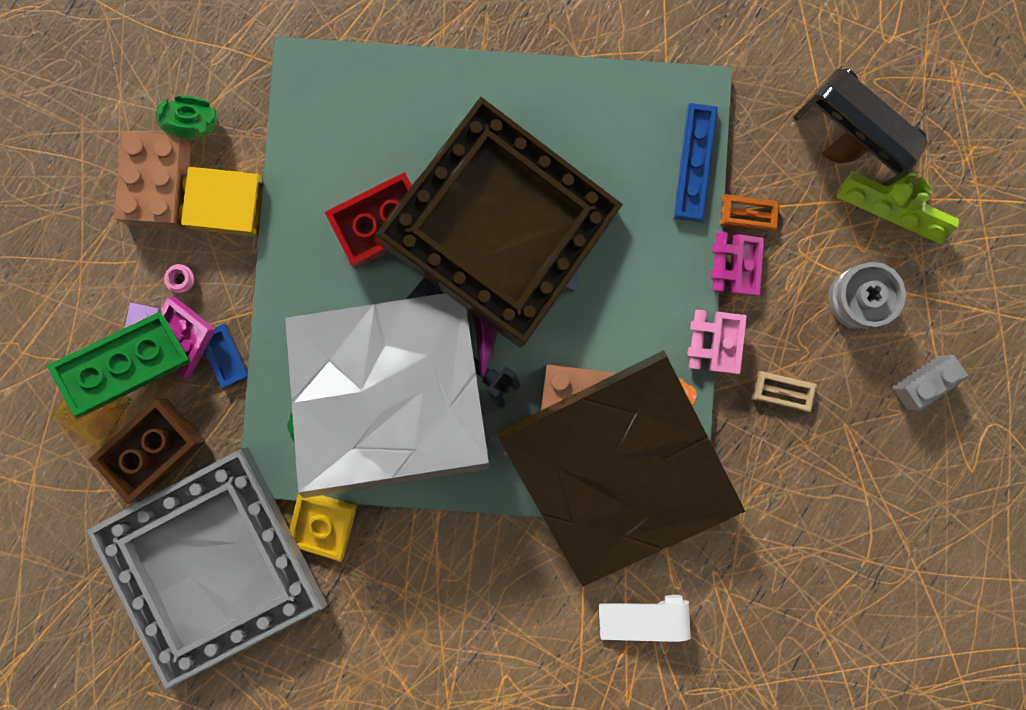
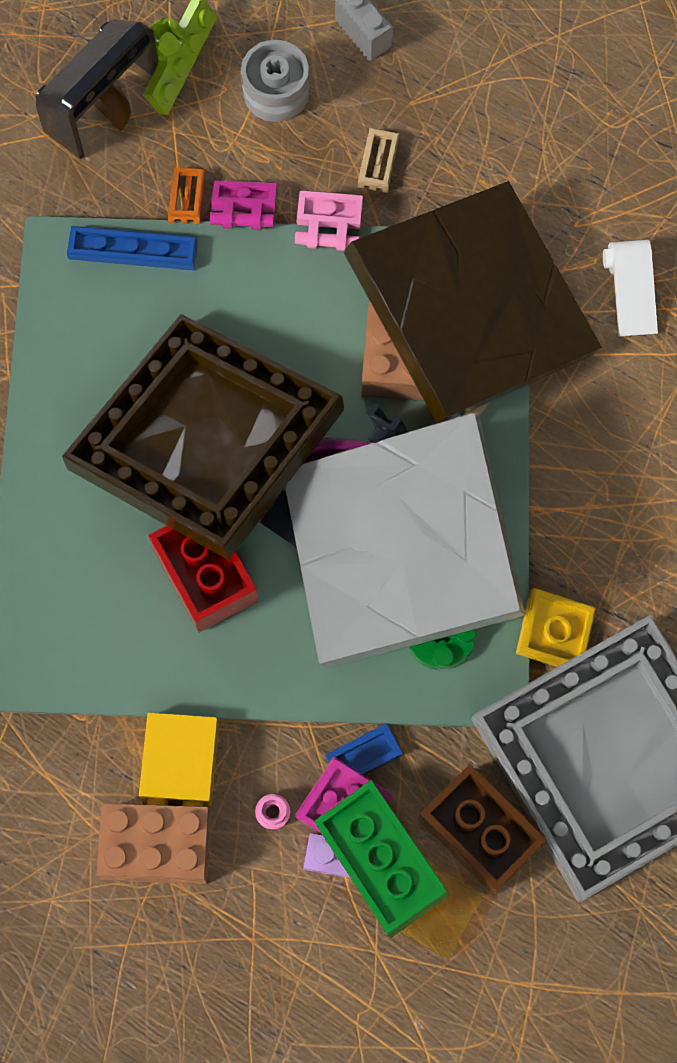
camera: 90 degrees left, 15 degrees down
(186, 117) = (77, 804): green tile -> none

